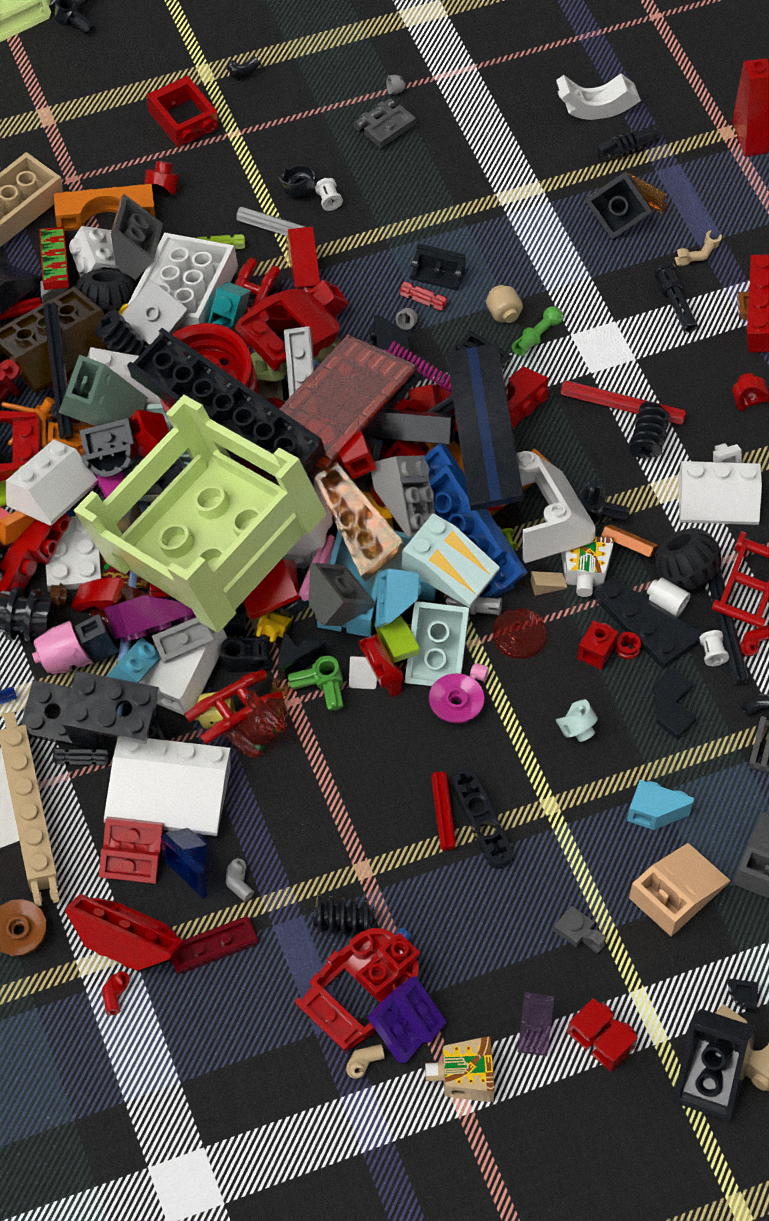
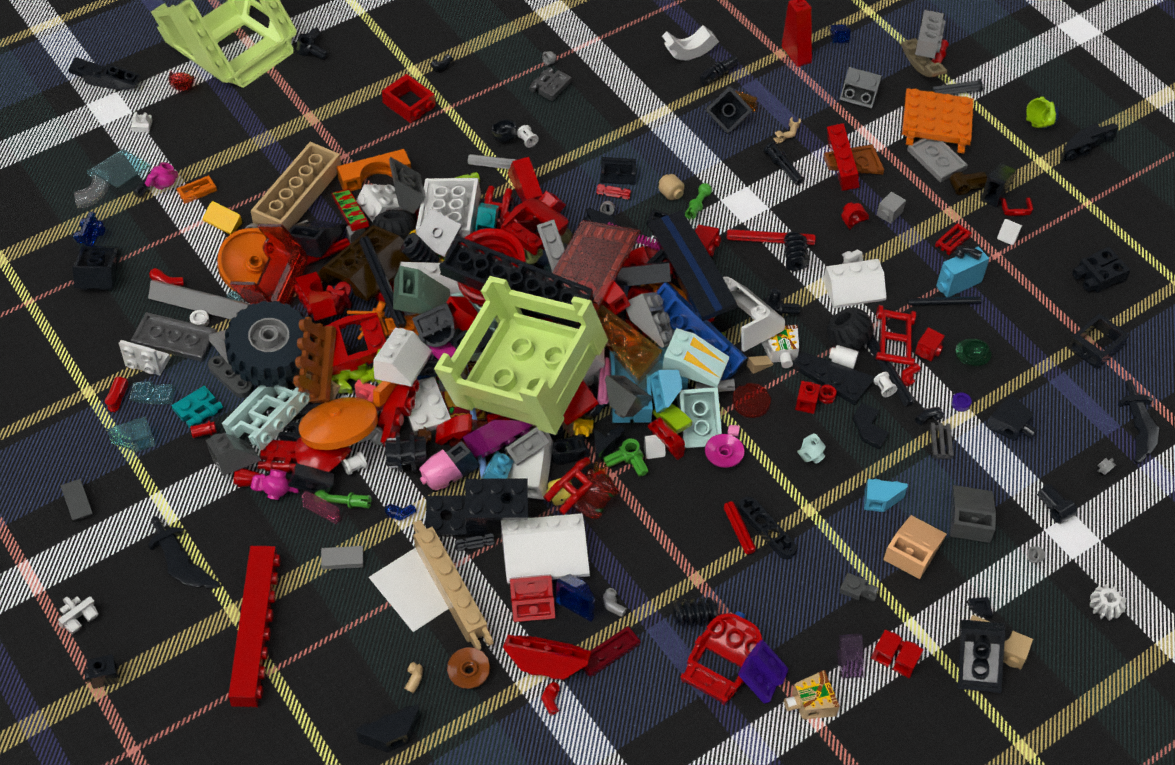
camera: 15 degrees left, 5 degrees down
(162, 176) = (409, 142): red piece -> none
(361, 1058) = (738, 705): tan arm -> none
(388, 965) = (740, 637): red slope -> none
(630, 540) = (807, 325): orange tile -> none

